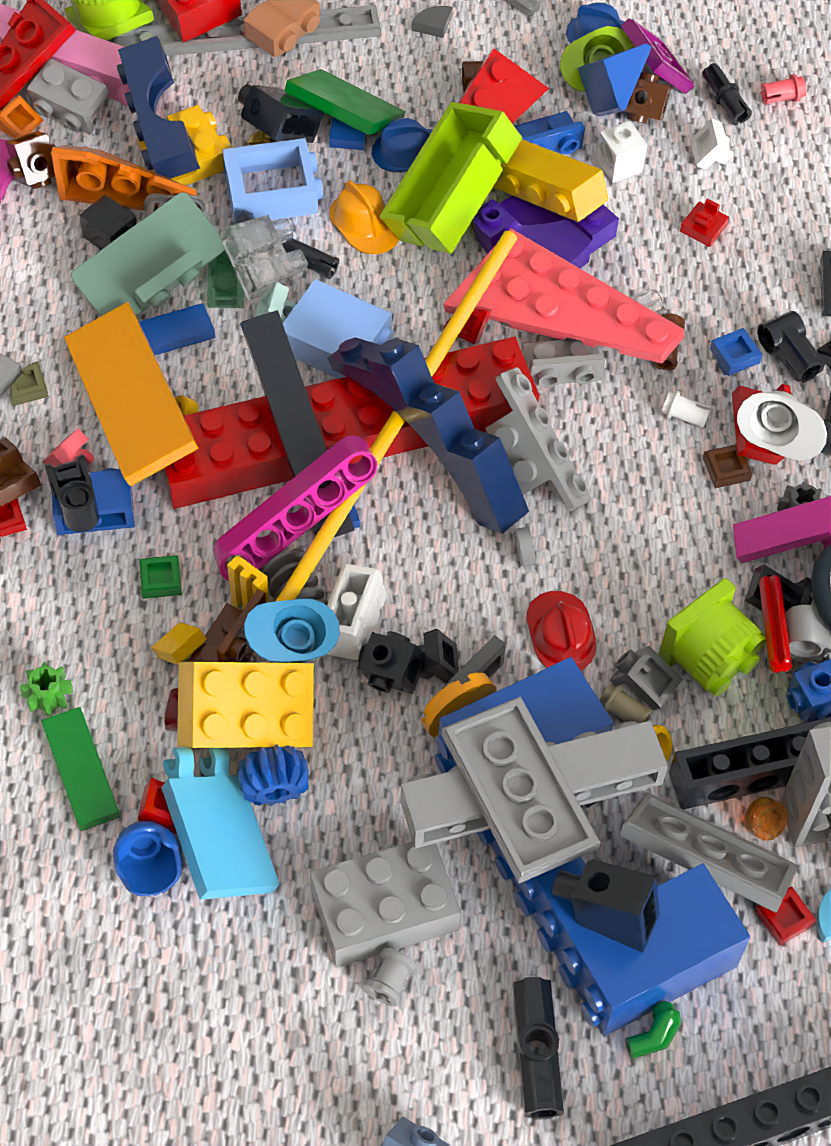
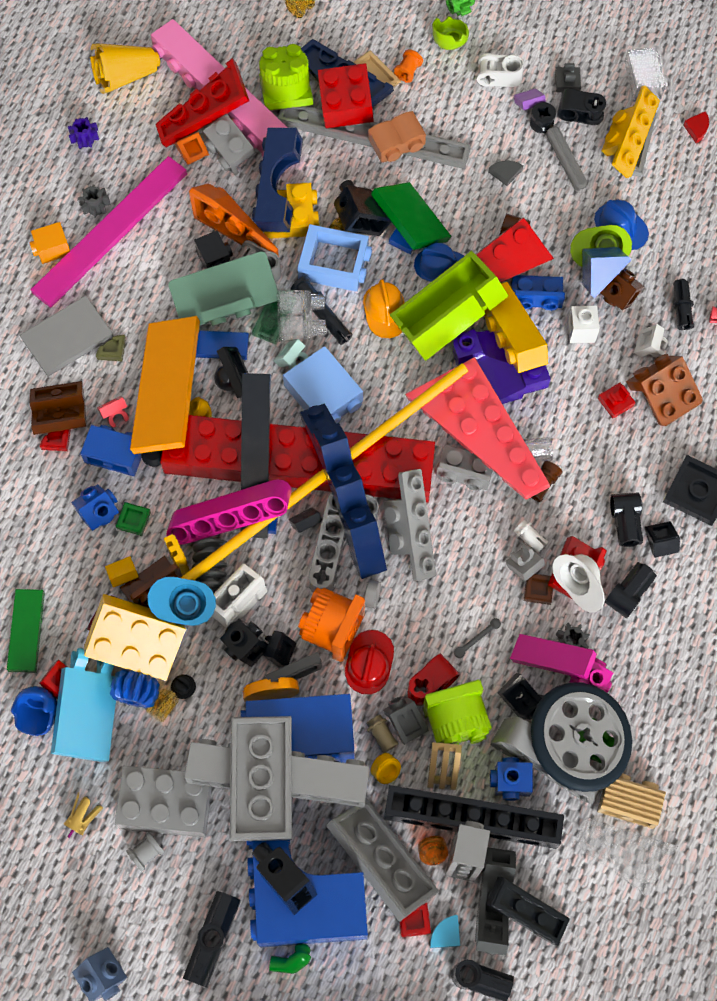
camera: 25 degrees right, 10 degrees up
(31, 159) = (181, 182): reddish brown brick -> none
(46, 699) = (25, 562): bright green gear -> none
(74, 488) = (97, 440): black piece -> none
(104, 575) = (96, 506): none -> blue brick
(151, 489) = (152, 458): none -> black piece
(209, 355) = (230, 374): none -> black tile
(276, 976) = (76, 821): none -> pearl gold piece
(320, 785) = (163, 705): none -> clear yellow slope
(333, 753) = (183, 686): none -> black piece
(393, 491) = (305, 520): none -> black tile
(440, 507) = (332, 543): none -> light grey beam
(474, 325) = (418, 418): red tile -> none
(495, 592) = (332, 621): none -> orange piece
(651, 616) = (435, 676): none -> red piece
(660, 57) = (646, 259): magenta tile -> none
(670, 575) = (460, 651): none -> dark grey hinge
(696, 439) = (525, 562): none -> light grey tile
(735, 352) = (584, 508): blue tile -> none
(743, 698) = (443, 780): none -> tan tile
(759, 186) = (667, 388): none -> bracket
(775, 624) = (501, 723): red axle -> none

